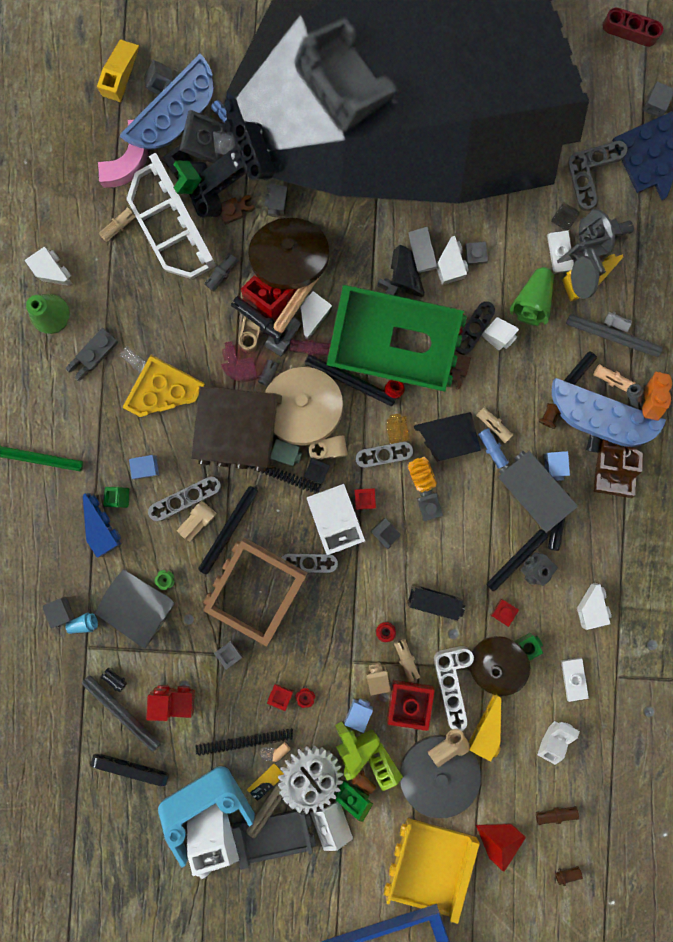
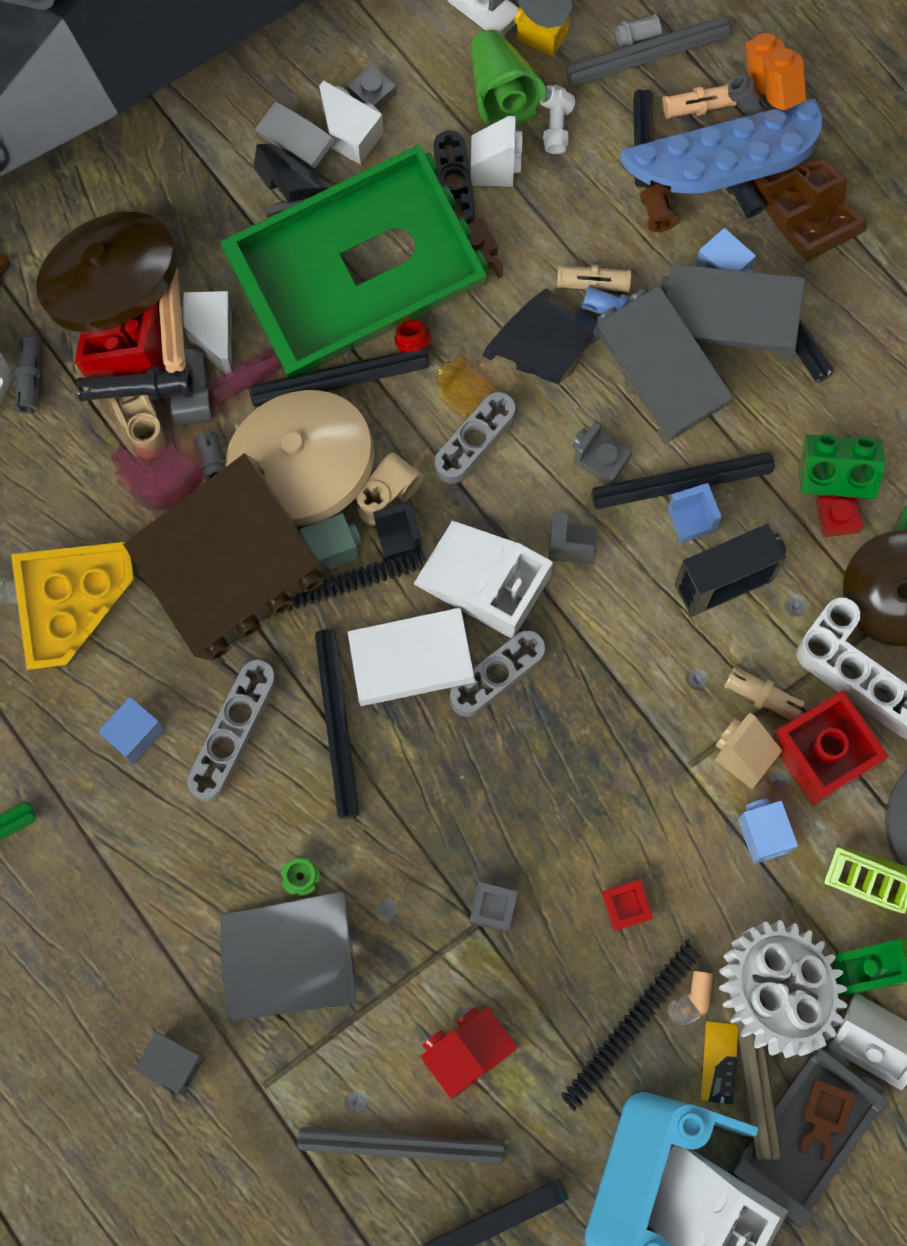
camera: 40 degrees left, 15 degrees down
(82, 624) = (224, 1051): medium azure cone -> none
(98, 530) = (139, 885): blue slope -> none
(115, 681) = (346, 1099): black pin -> none
(116, 497) = (122, 813): green slope -> none
(199, 518) = (277, 734): tan piece -> none
(229, 565) = (516, 760): medium nougat window -> none
(276, 199) = (31, 221): dark grey brick -> none
(279, 528) = (410, 657): none -> white tile
(287, 835) = (828, 1113): none -> reddish brown plate
(310, 698) = (676, 876): red plate -> none
(355, 750) = (806, 884): lime piece -> none
(364, 783) = (863, 929): dark orange pin -> none
(365, 499) = (501, 515): red plate -> none
(386, 638) = (702, 669): red plate -> none
(422, 474) = (553, 414): light orange gear -> none
(444, 564) = (694, 513): none -> medium blue panel
(453, 544) = (682, 479): none -> black axle
(487, 489) = (662, 362): none -> dark grey panel
(507, 570) = (789, 430): black axle -> none
(521, 596) = (841, 466): none -> green brick
(538, 569) = (830, 410): dark grey brick -> none
(551, 329) = (560, 104): none -> white bar

